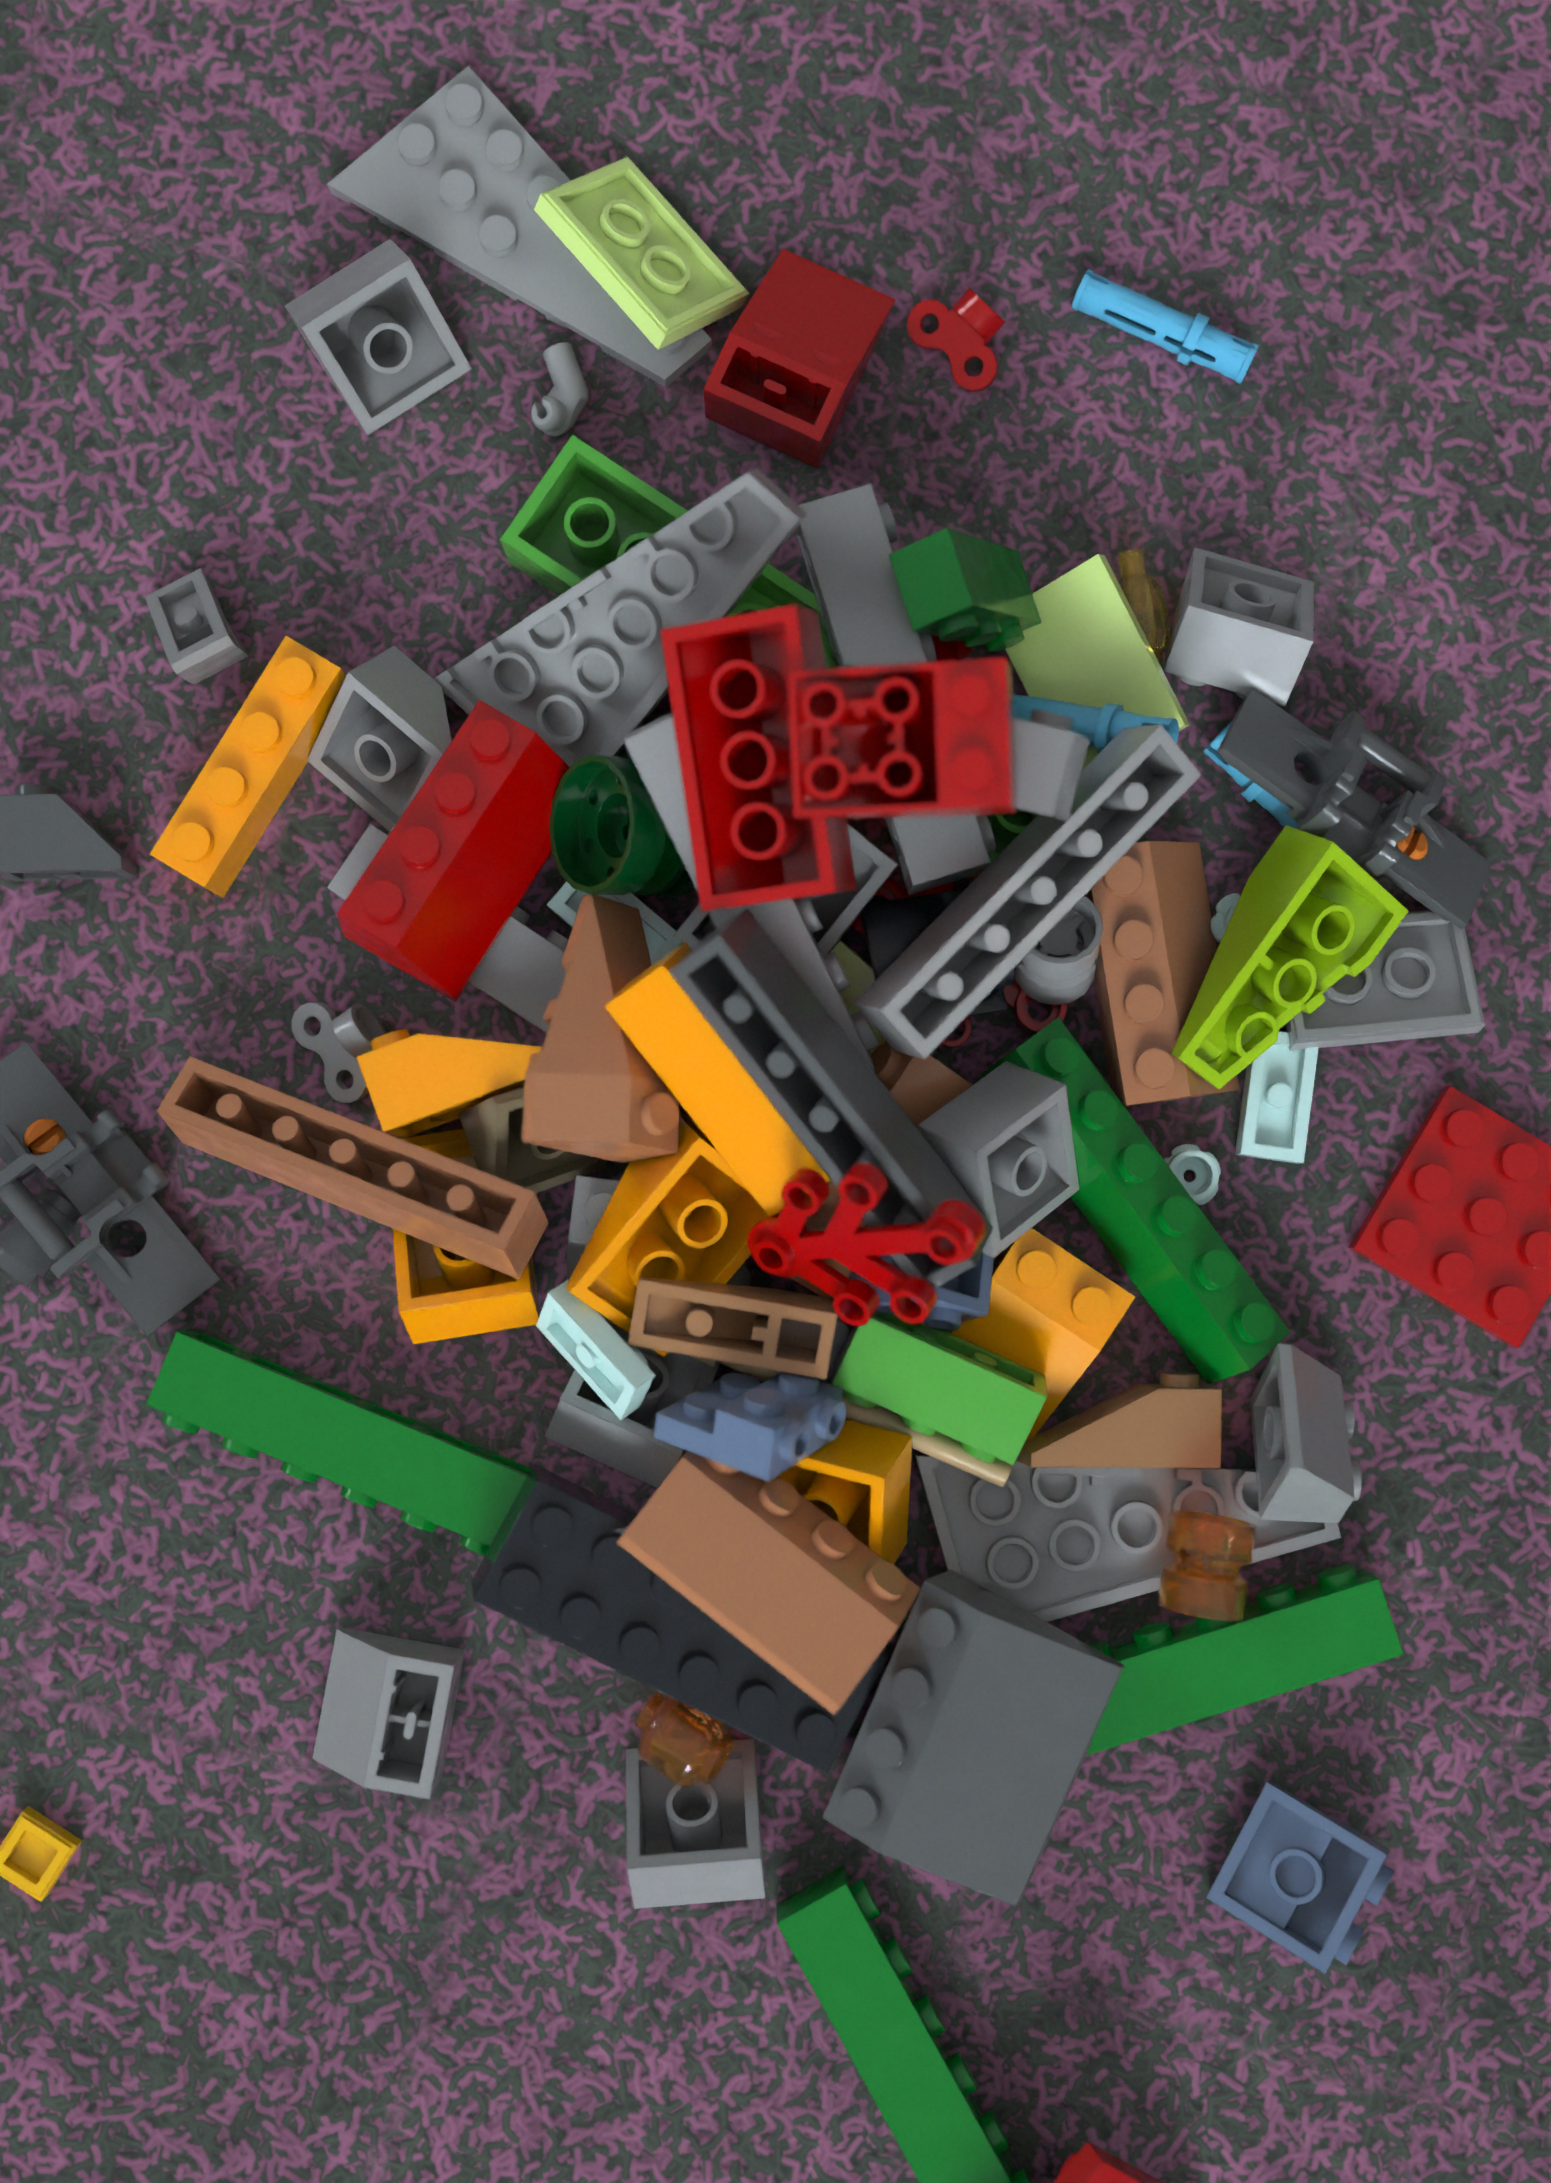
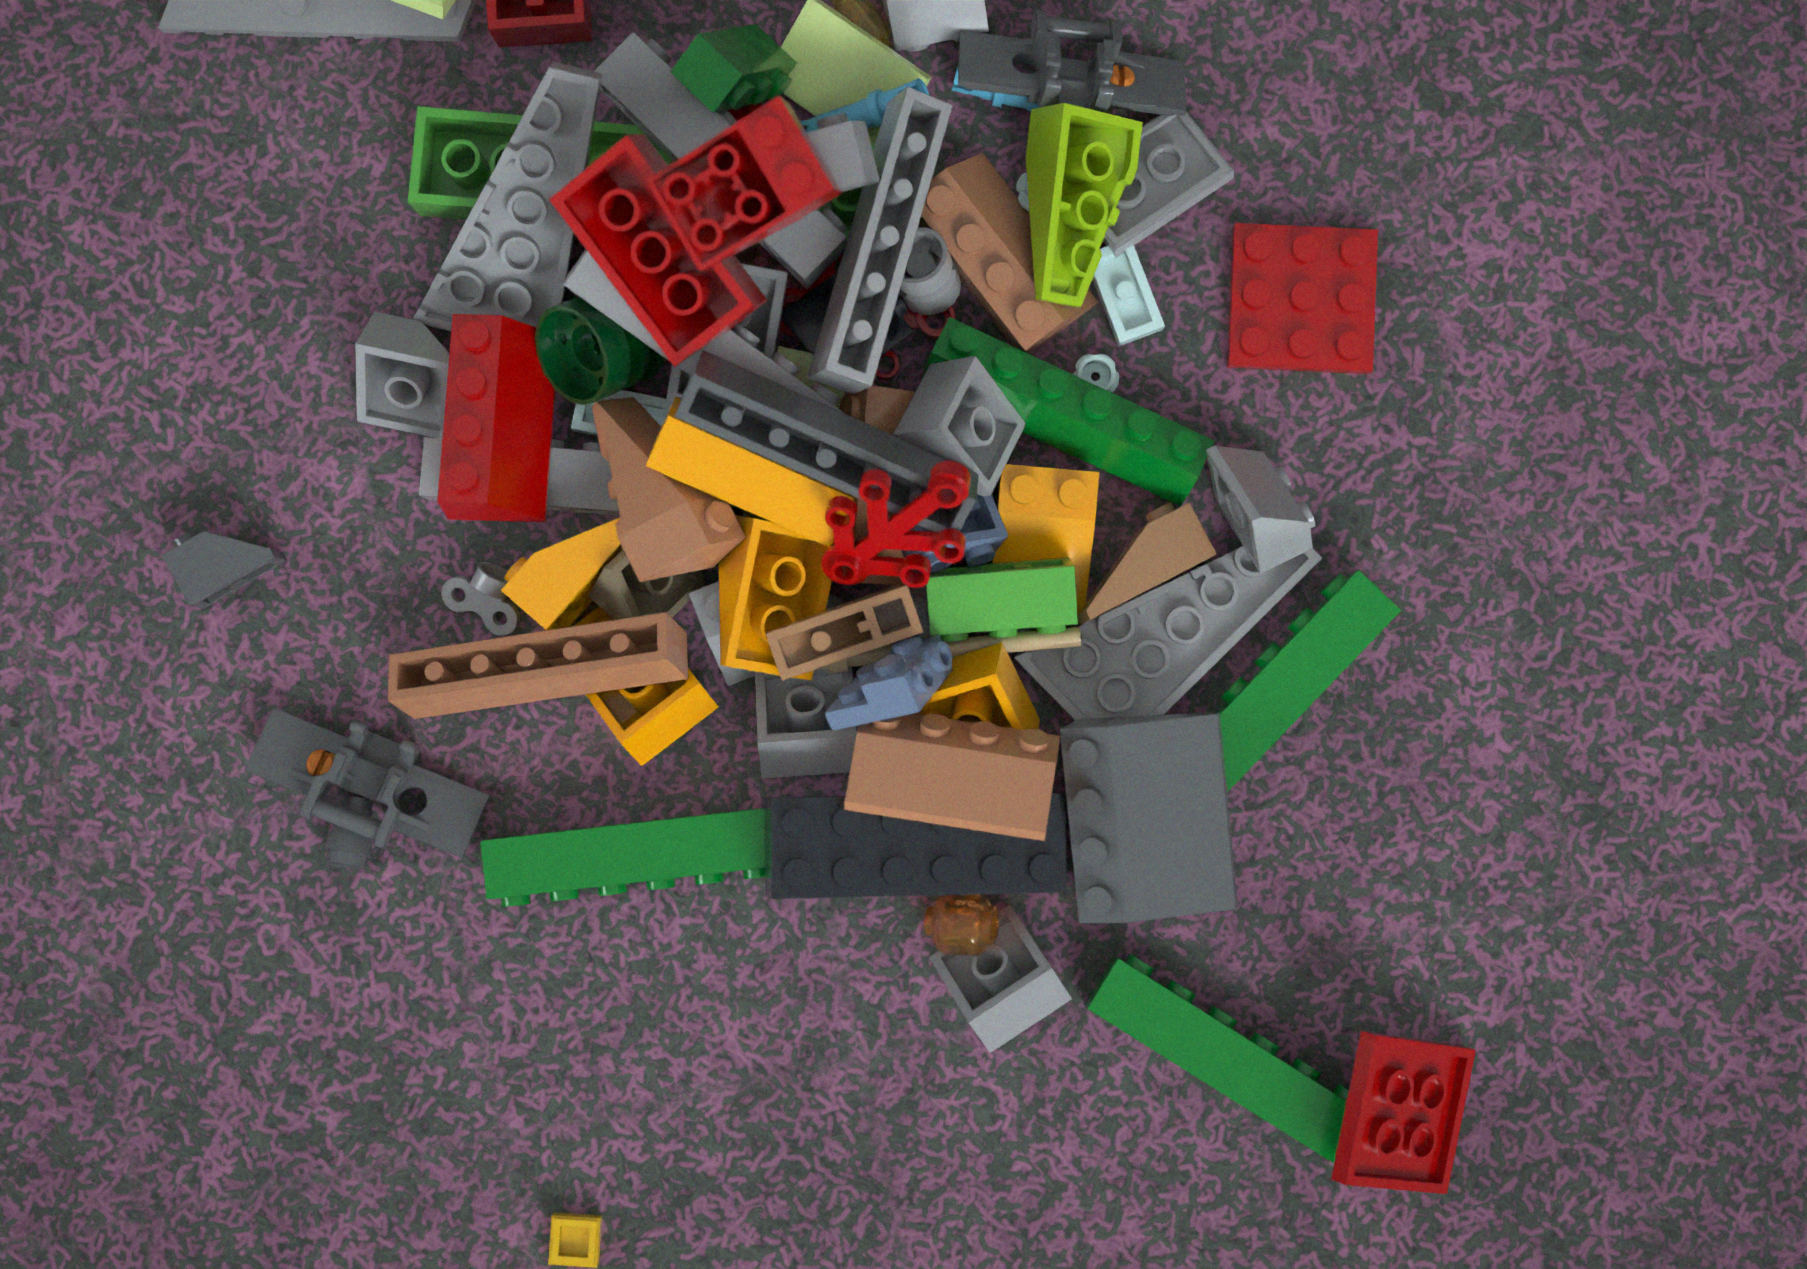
camera: 20 degrees left, 0 degrees up
(194, 628) = (233, 372): light grey slope -> none
(251, 768) = (324, 444): light orange brick -> none
(379, 336) = (249, 110): light grey slope -> none
(388, 1711) = (756, 1014): light grey slope -> none
(568, 395) = (397, 84): light grey arm -> none
(595, 1351) = (763, 698): light aqua plate -> none
(1201, 1588) = (1243, 602): clear orange wheel -> none
(1301, 1877) = (1416, 793): sand blue plate -> none

